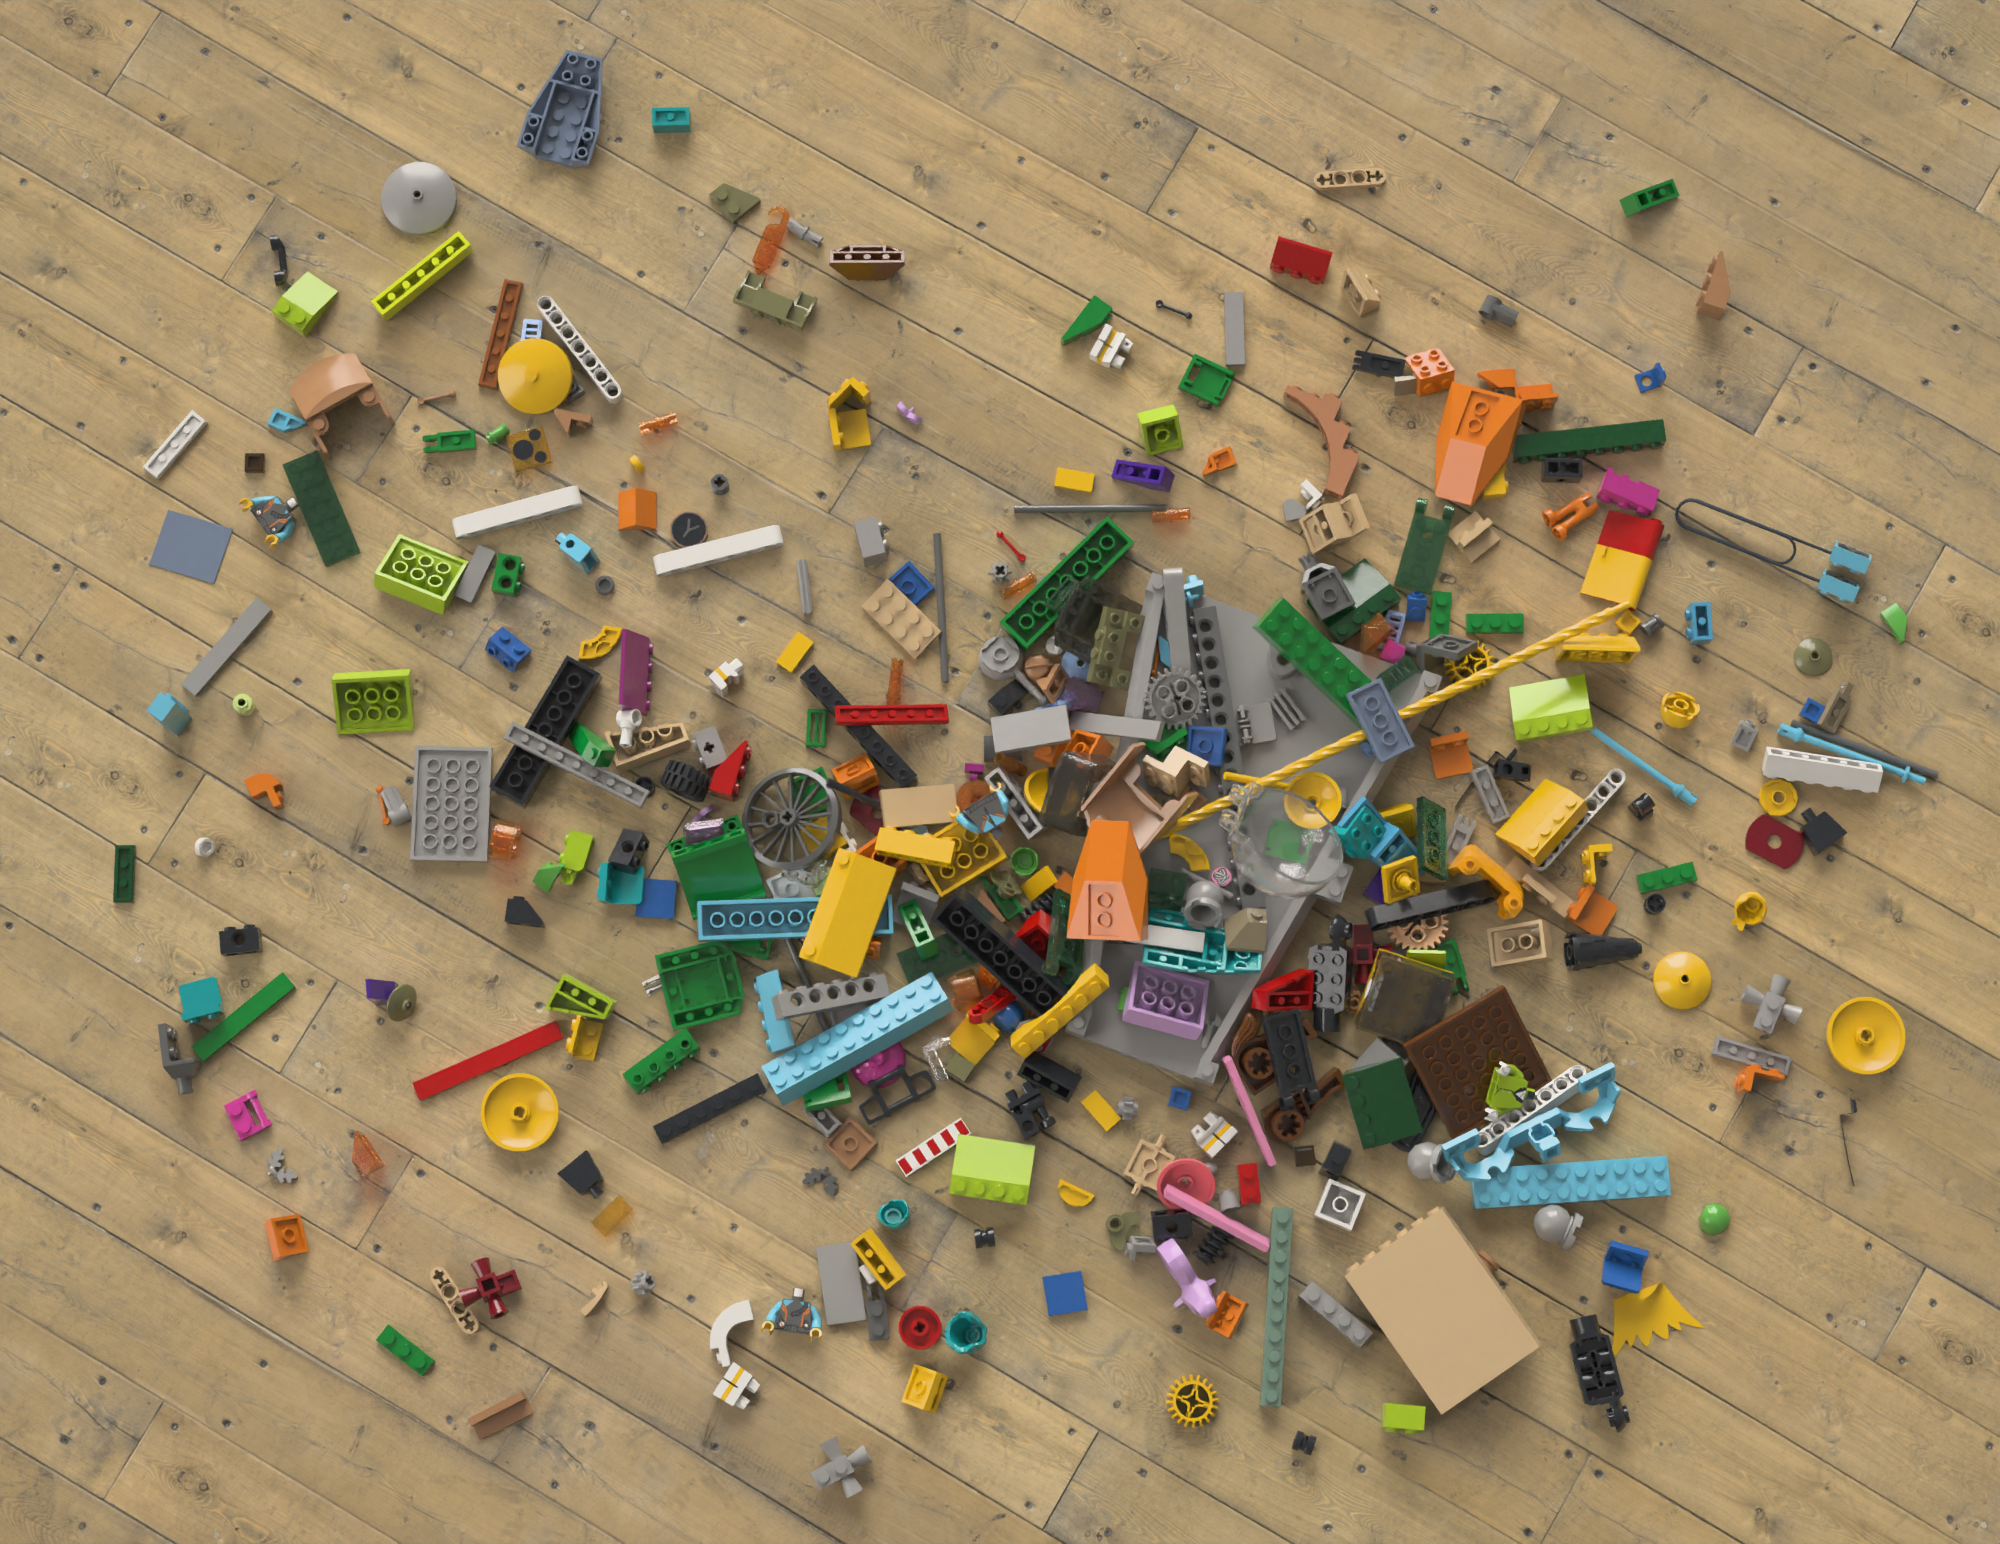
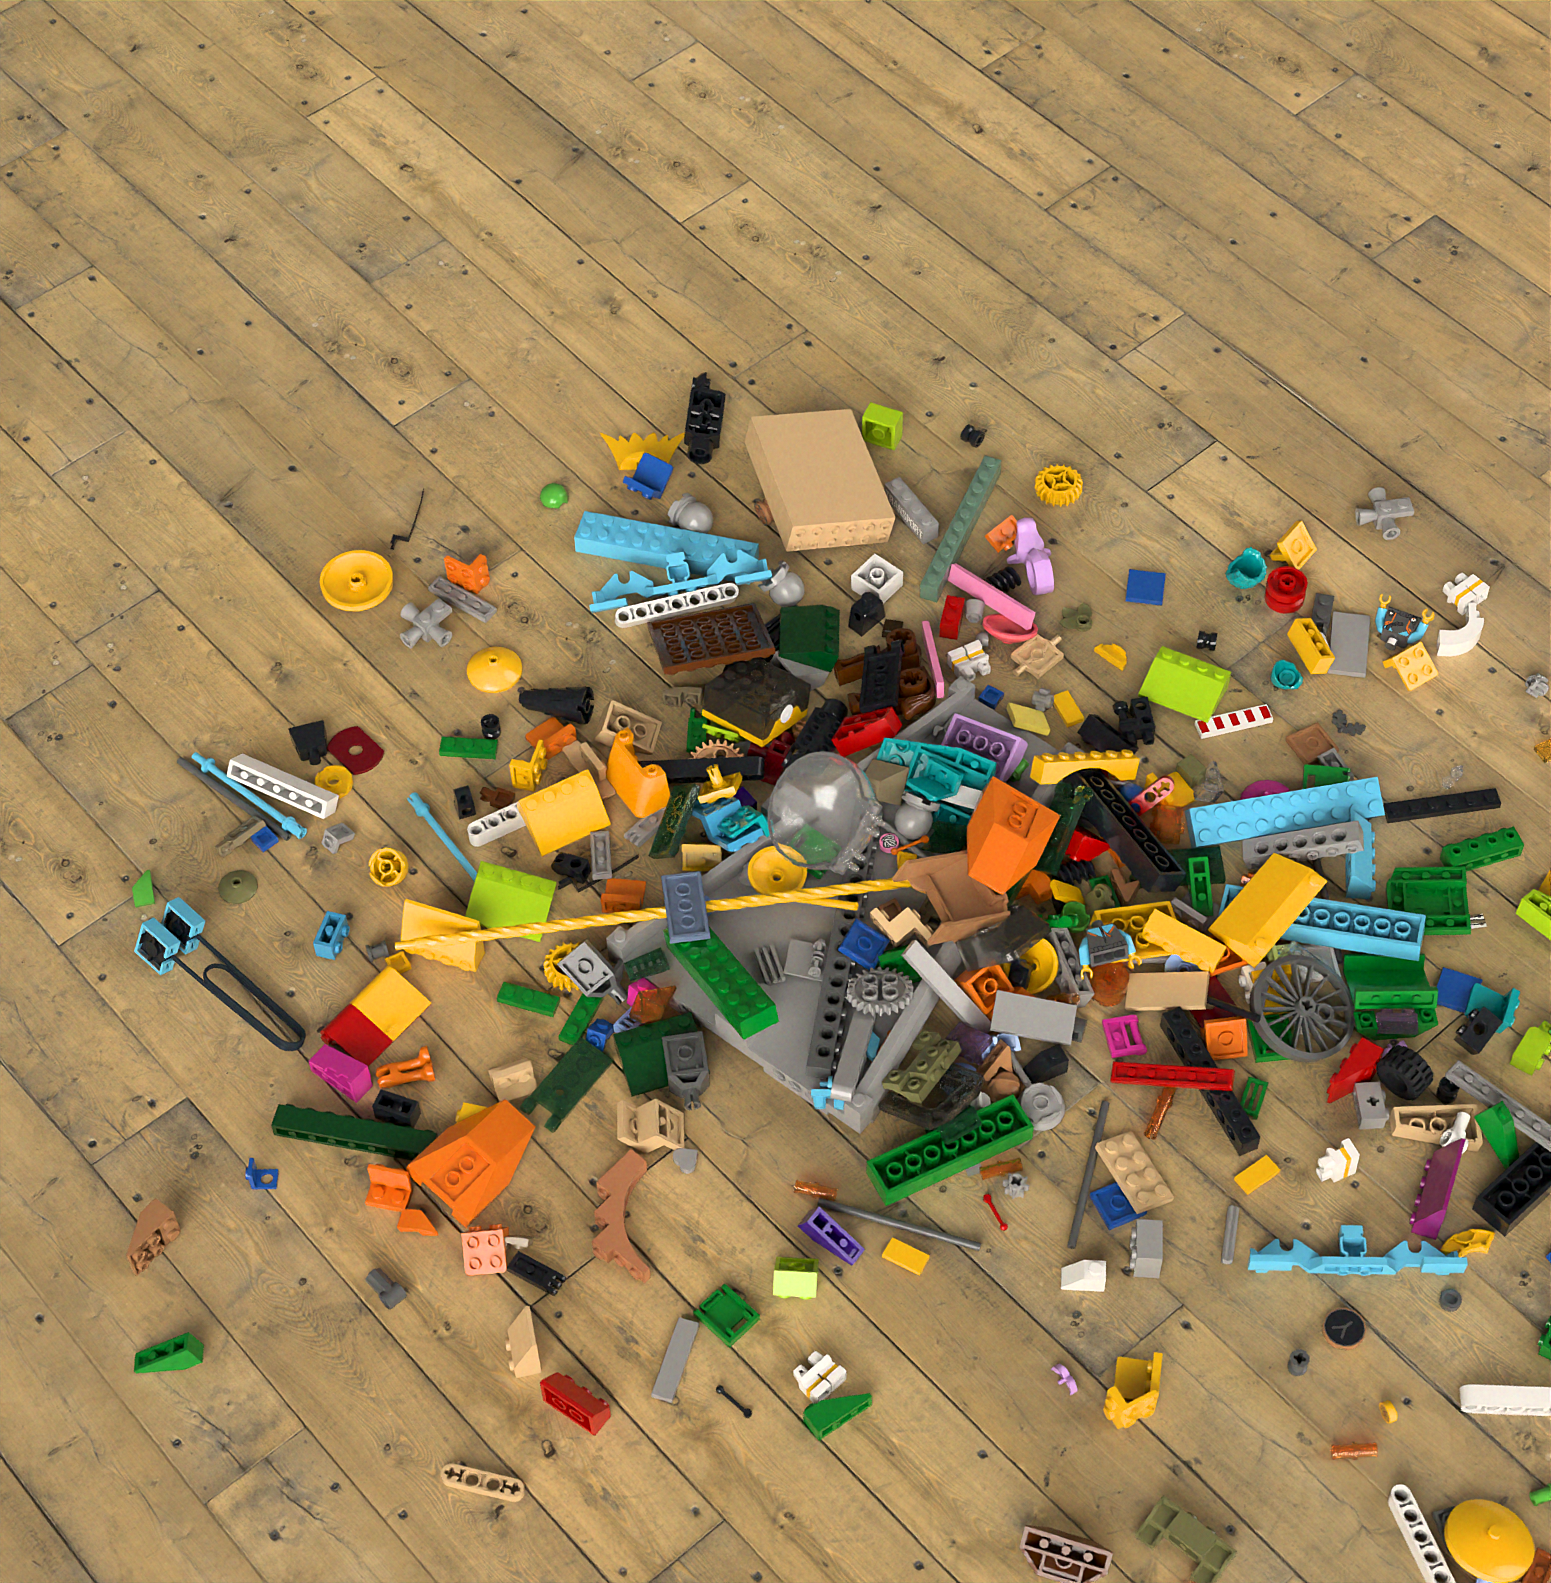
camera: 160 degrees left, 25 degrees down
(529, 449) = (1510, 1469): clear yellow tile -> none
(568, 418) = (1457, 1485): medium nougat slope -> none
(577, 552) = (1476, 1335): medium azure torso -> none
(637, 509) = (1398, 1365): orange slope -> none
(694, 592) = (1352, 1258): none -> medium azure piece
(718, 550) = (1316, 1295): white beam -> none
(773, 1272) = (1412, 665): none -> yellow bracket
(901, 1103) = (1277, 774): black bar -> none
(918, 506) = (1084, 1275): none -> white slope
(952, 750) = (1118, 1039): none -> dark pink plate
(974, 770) = (1100, 1010): magenta tile -> none
(1044, 843) = (1063, 922): none -> green hinge
(1134, 1074) = (1028, 719): none -> light yellow tile
(1139, 1244) = (1066, 598): light grey bracket -> none
(1162, 1218) = (1039, 603): black brick -> none
(1195, 931) = (937, 782): none -> teal bracket
(1212, 865) = (925, 839): none -> orange hinge
(1219, 461) = (743, 1231): orange slope -> none
(1311, 492) = (661, 1165): white bracket -> none
(1506, 1091) = (695, 613): lime torso -> none
(1610, 826) = (499, 799): none -> reddish brown plate
(1749, 909) = (407, 699): yellow hat -> none

